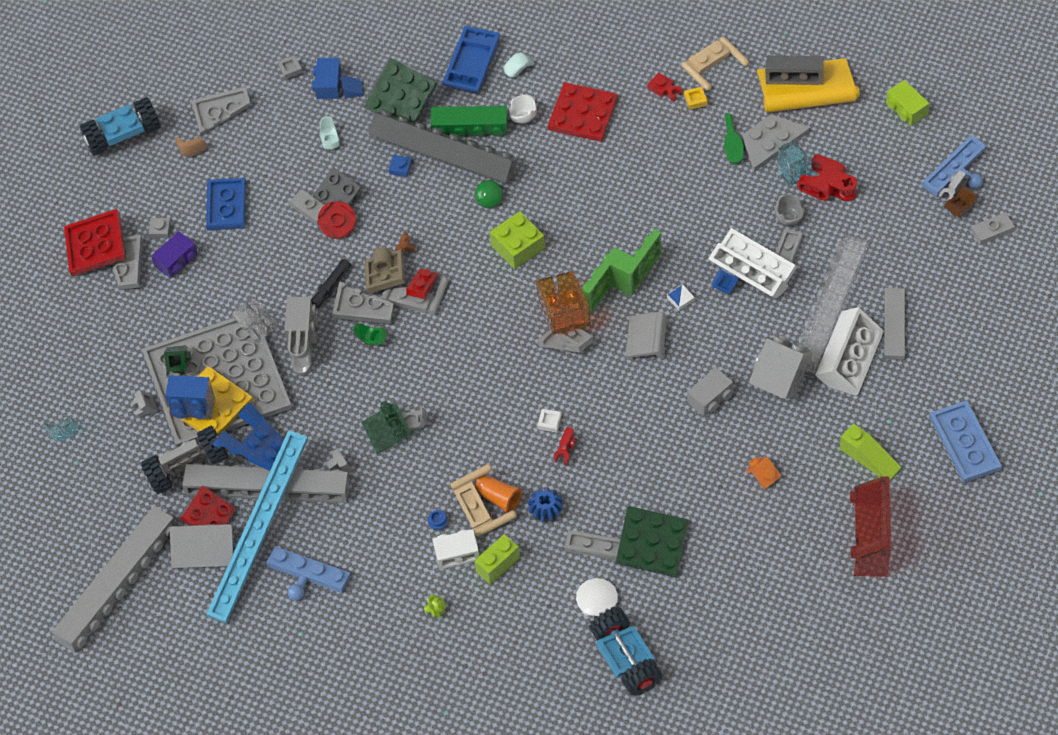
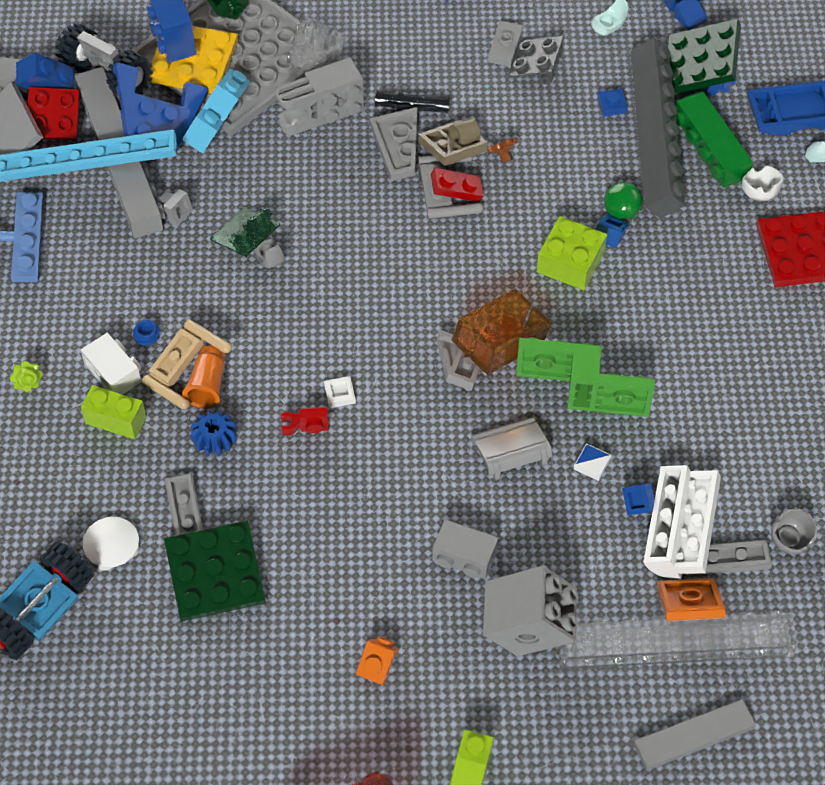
camera: 60 degrees right, 0 degrees up
(175, 502) = (43, 73): none -> blue brick
(270, 396) = (216, 110): none -> medium azure arch
(336, 220) = (499, 72): red tile -> none
(370, 335) = (363, 163): green hair -> none
(505, 210) = (613, 228): none -> blue slope
(808, 284) = (690, 599): none -> orange tile
(849, 351) = (615, 694): white slope -> none

